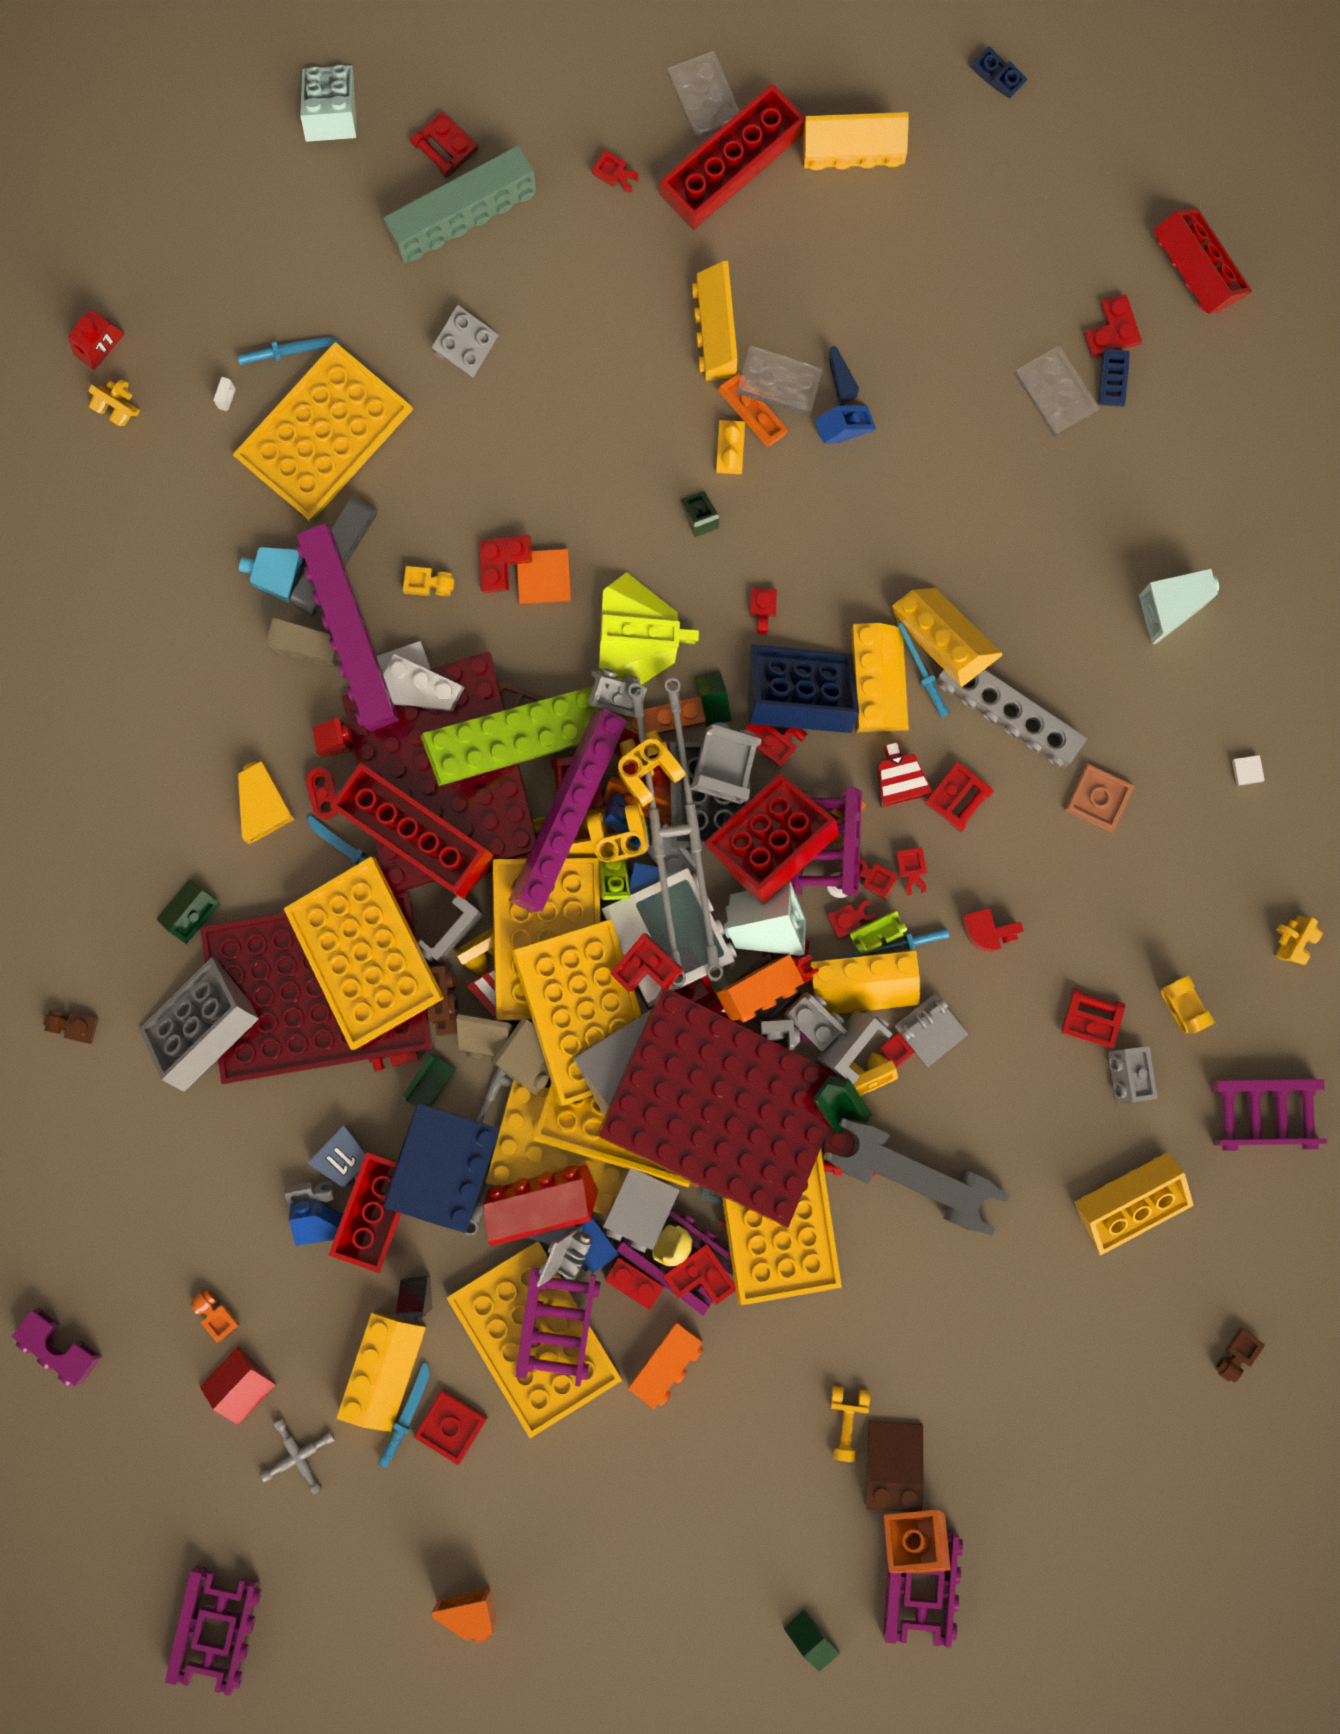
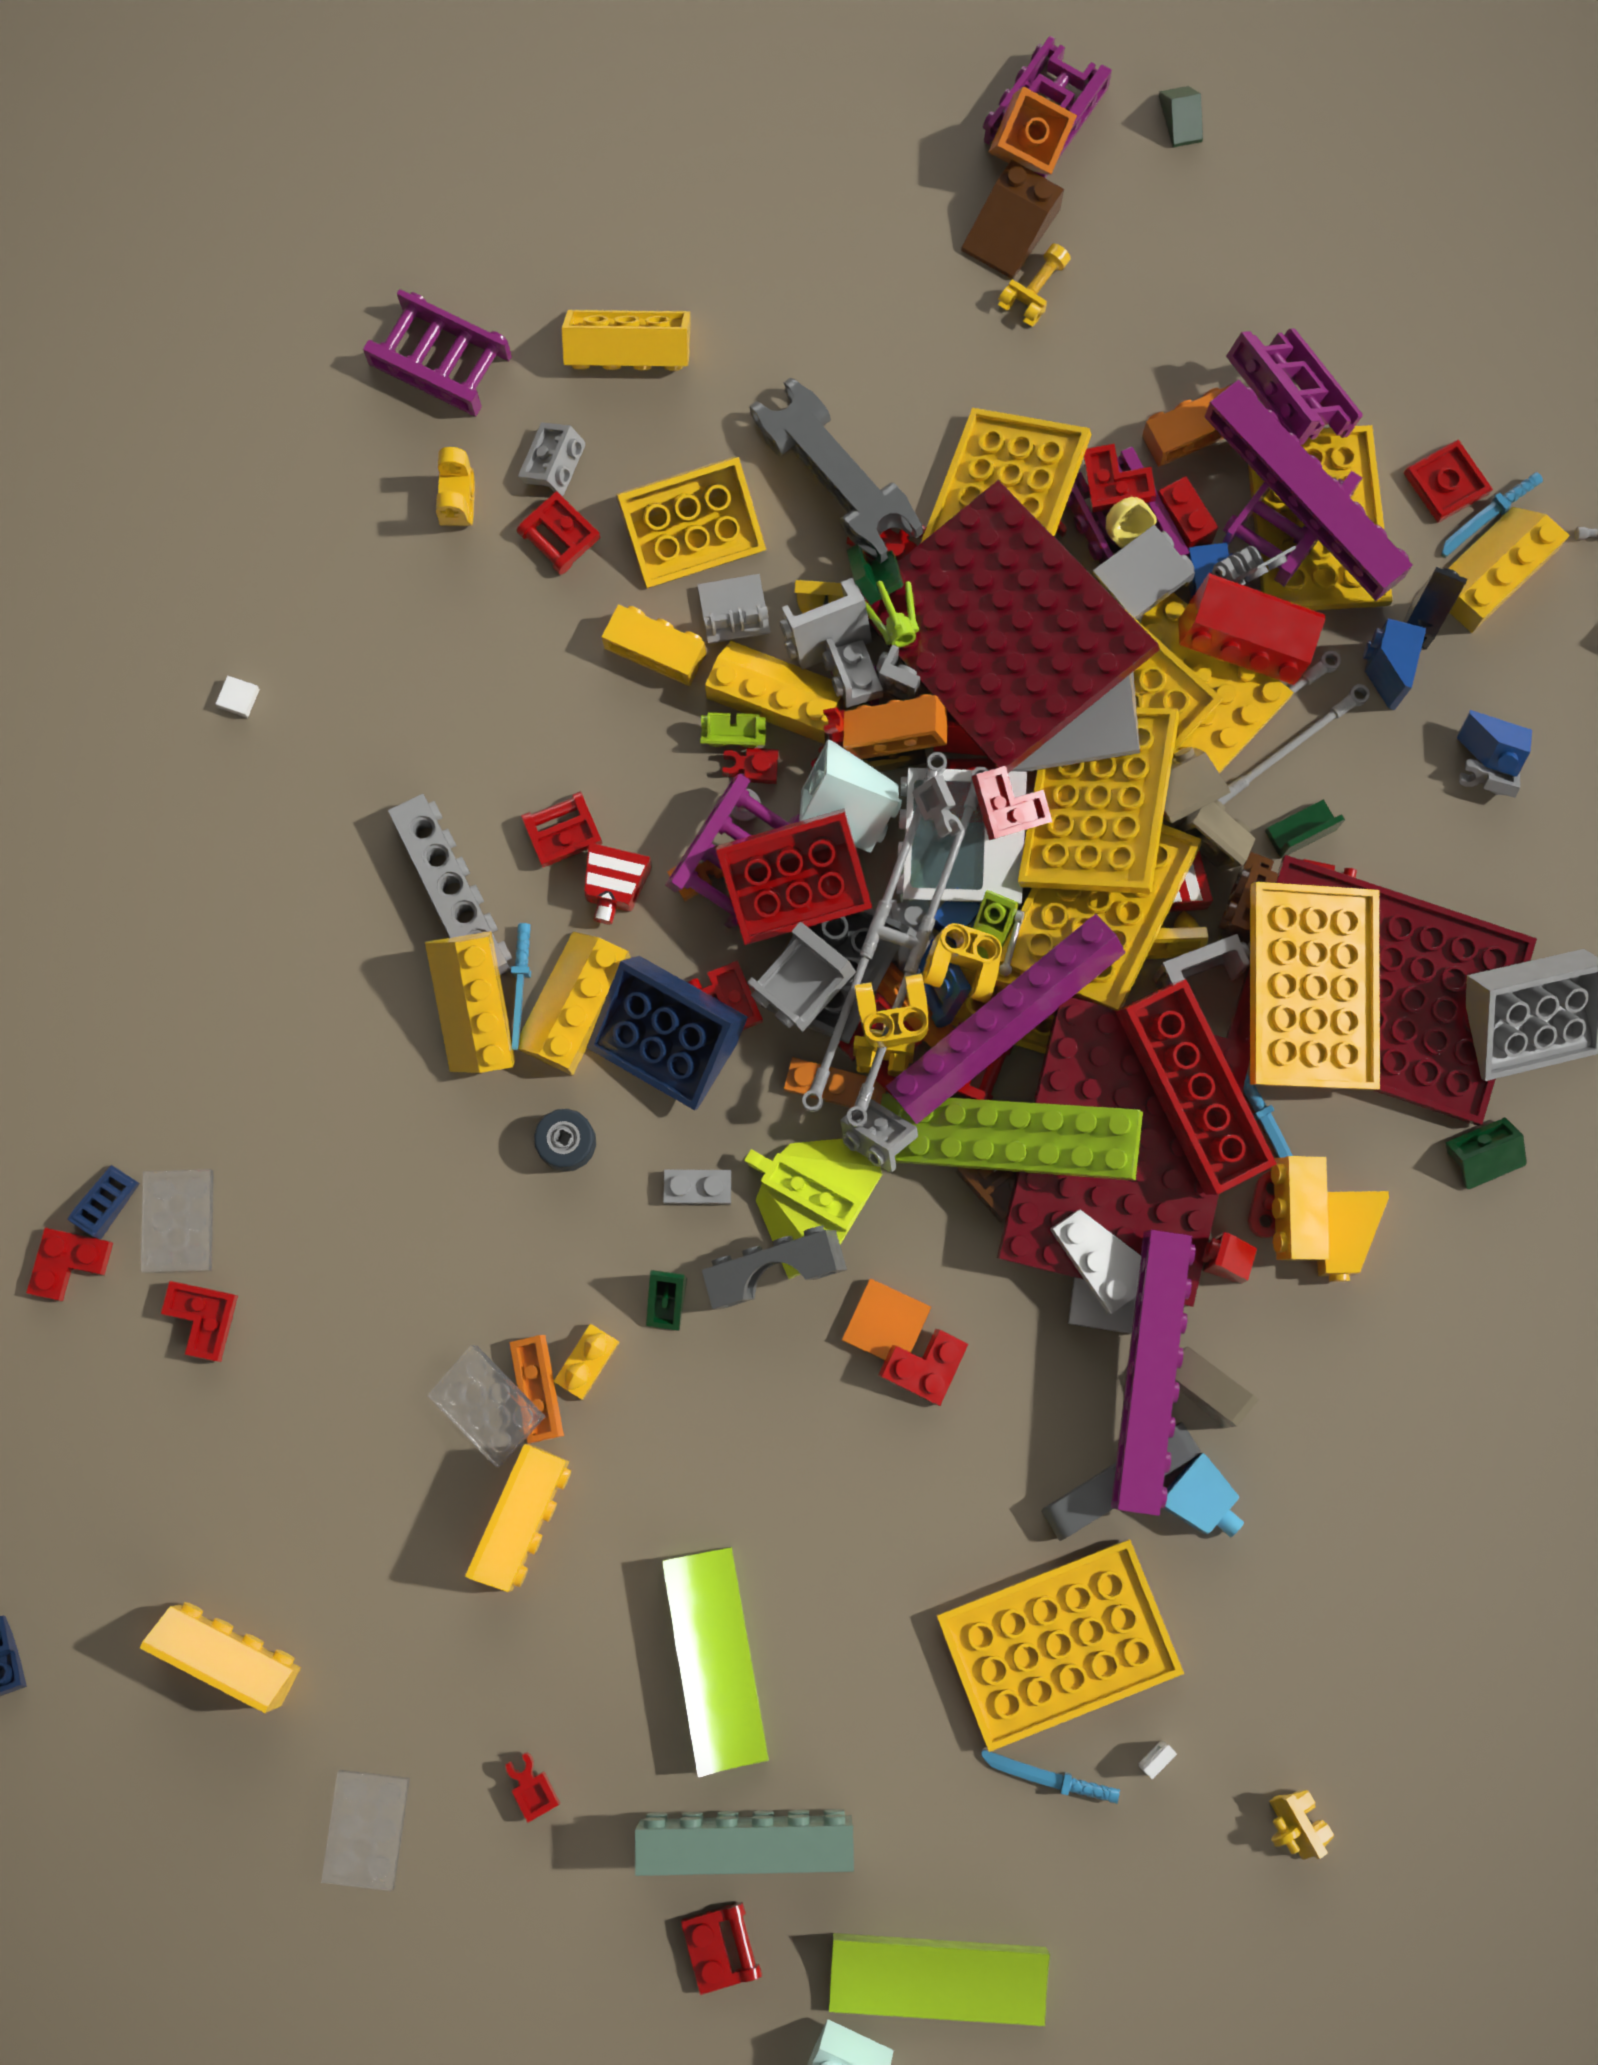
camera: 150 degrees left, 5 degrees down
(93, 338) = (1286, 1923): red torso -> none
(299, 197) = (939, 1979): none -> lime arch
(299, 795) = (1300, 1208): none -> yellow brick
(340, 1157) = (1436, 794): sand blue torso -> none
(366, 1225) = (1429, 718): red slope -> none
(420, 581) = (1034, 1393): yellow plate -> none
(422, 1245) = (1393, 659): none -> blue slope
(441, 1168) = (1336, 721): dark blue slope -> none
(464, 341) = (830, 1665): light grey hinge -> none
(468, 1615) = (1520, 293): orange slope -> none
(542, 307) = (715, 1661): none -> lime arch
(551, 1338) = (1308, 490): none -> magenta brick
(588, 852) = (1005, 969): none -> light grey hinge
(613, 1415) = (1270, 375): none -> magenta fence
(616, 582) = (736, 1280): none -> dark grey arch
(697, 935) = (934, 804): none -> light grey plate
(713, 698) = (768, 1081): dark green slope -> none
(721, 599) = (697, 1187): none -> light grey plate
(732, 156) = (378, 1722): red brick -> none
(763, 605) = (653, 1154): red plate -> none
(798, 1064) = (899, 629): none -> lime plant
(825, 589) = (570, 1150): none -> black wheel
(844, 383) = (412, 1364): dark blue slope -> none
(844, 423) = (440, 1313): blue slope -> none
(878, 879) = (700, 787): red plate -> none
(896, 1049) = (777, 600): red tile -> none
(910, 941) = (702, 707): dark azure sword -> none
(912, 865) = (656, 782): red plate -> none
(972, 969) = (654, 644): none -> yellow brick
(982, 932) = (619, 672): red brick -> none
(1001, 346) = (210, 1314): none -> red plate
(1001, 1080) = (691, 521): none -> yellow slope
(1099, 798) = (412, 751): nougat tile -> none
(1175, 600) = (199, 902): light aqua slope -> none
(1244, 1349) = (603, 155): reddish brown plate -> none
(1295, 938) = (299, 500): yellow hips -> none

